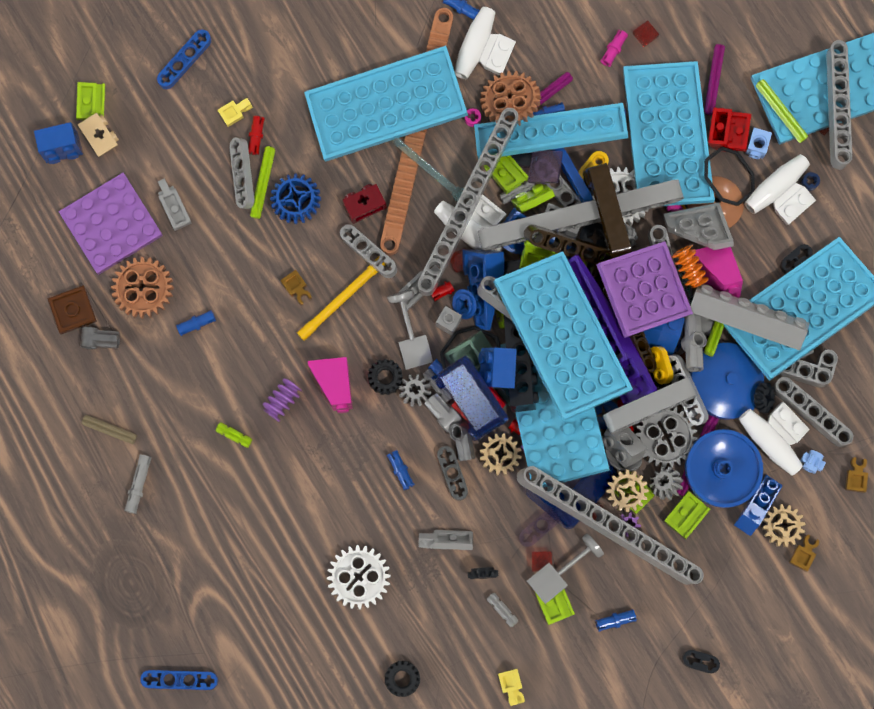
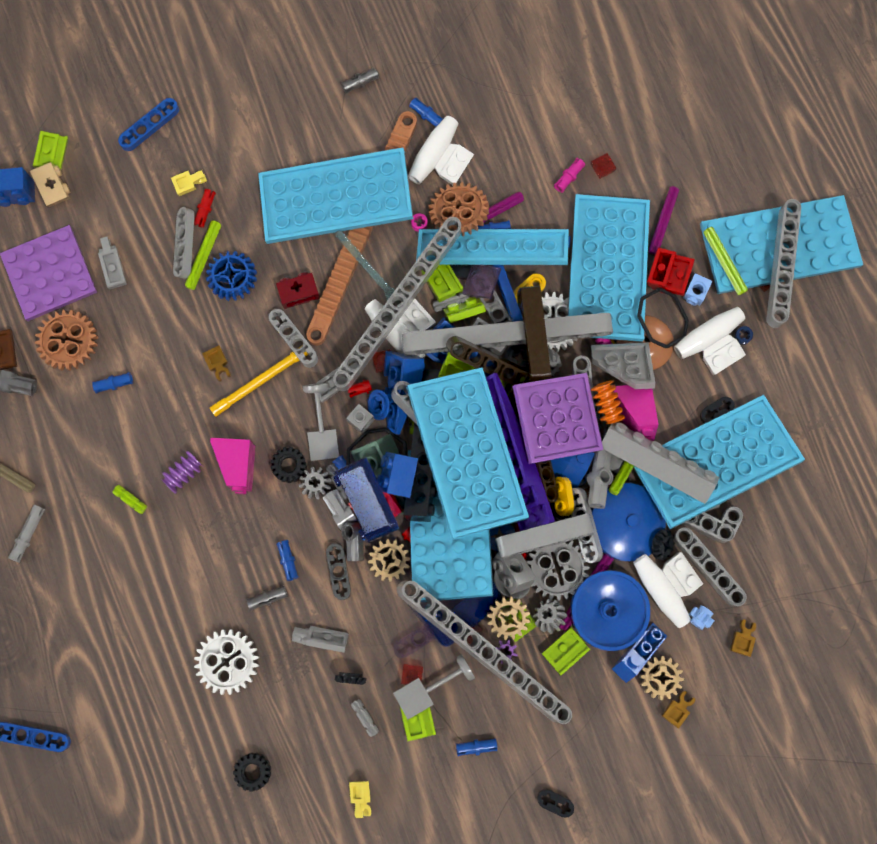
camera: 10 degrees right, 0 degrees up
(386, 509) = (267, 598): none -> flat silver pin

